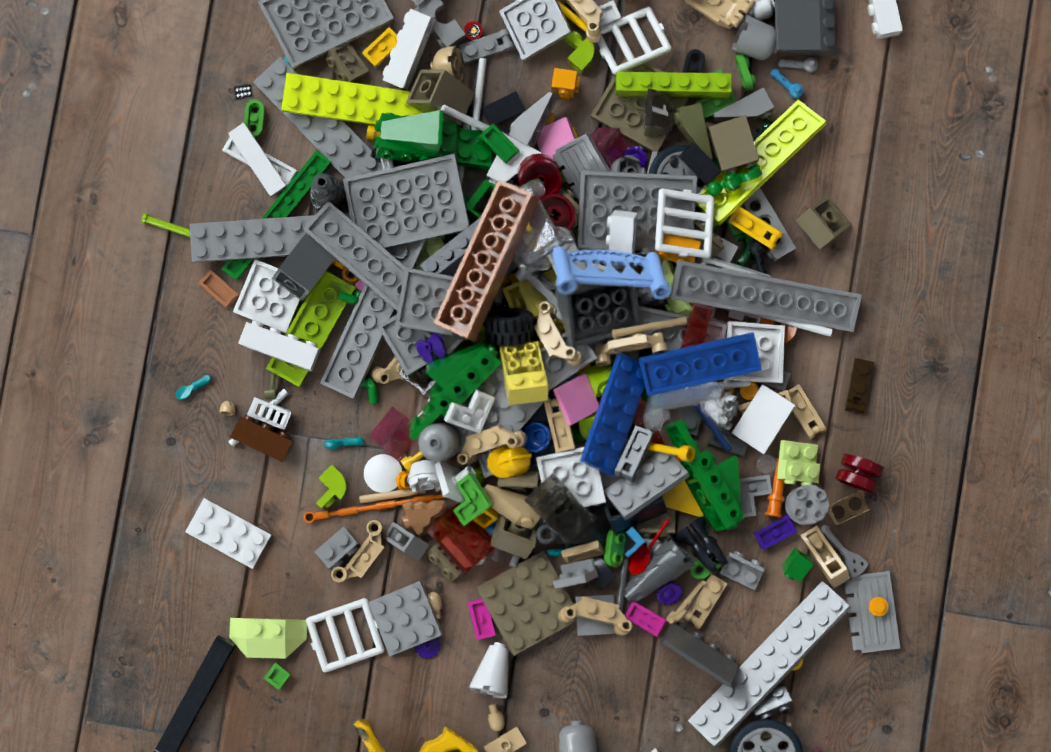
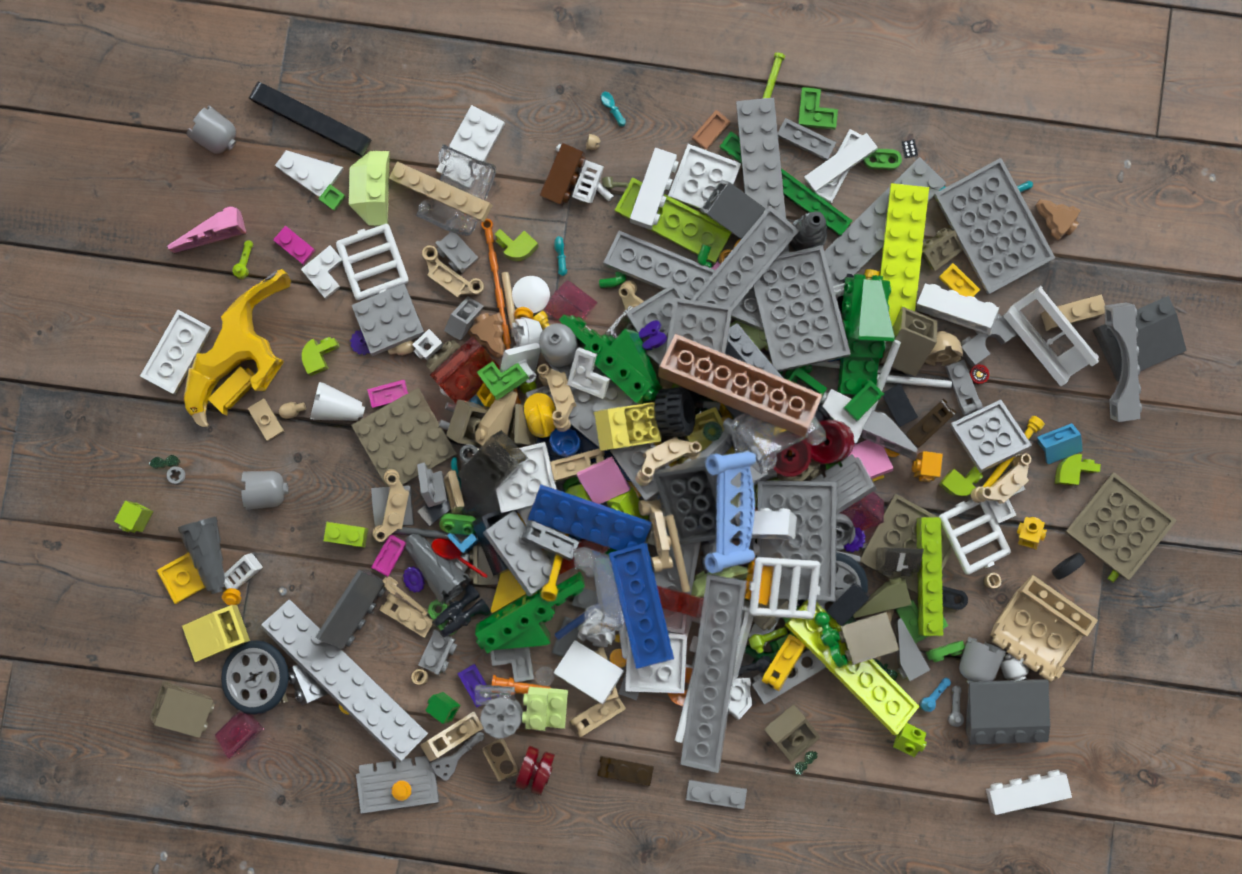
camera: 85 degrees right, 0 degrees up
(205, 188) = (811, 114): none -> bright green plate
(231, 193) = (806, 139): none -> light grey plate
(249, 700) = (309, 172): none -> white wing
(276, 562) = (440, 191): none -> tan plate
(277, 544) = (466, 174): none -> clear windscreen
(325, 715) = (294, 245): none -> dark pink plate
(353, 690) = (318, 271): none -> white plate
(425, 577) = (427, 338): none -> white brick
(441, 695) = (313, 355): none -> lime brick
(521, 80) = (930, 424): none -> dark brown plate
(529, 286) = (717, 431): none -> clear green cone
(624, 662) = (345, 534): none -> lime brick
(675, 23) = (995, 580): none -> tan hinge
(734, 253) = (758, 640): none -> lime piece
(764, 591) = (416, 675): none -> tan hinge
(784, 518) = (487, 693): none -> clear plate
(789, 271) = (740, 697): none -> white plate
(831, 108) = (910, 740): none -> lime brick
(848, 207) = (801, 766): none -> clear green piece
(882, 297) = (716, 794): none -> light grey plate

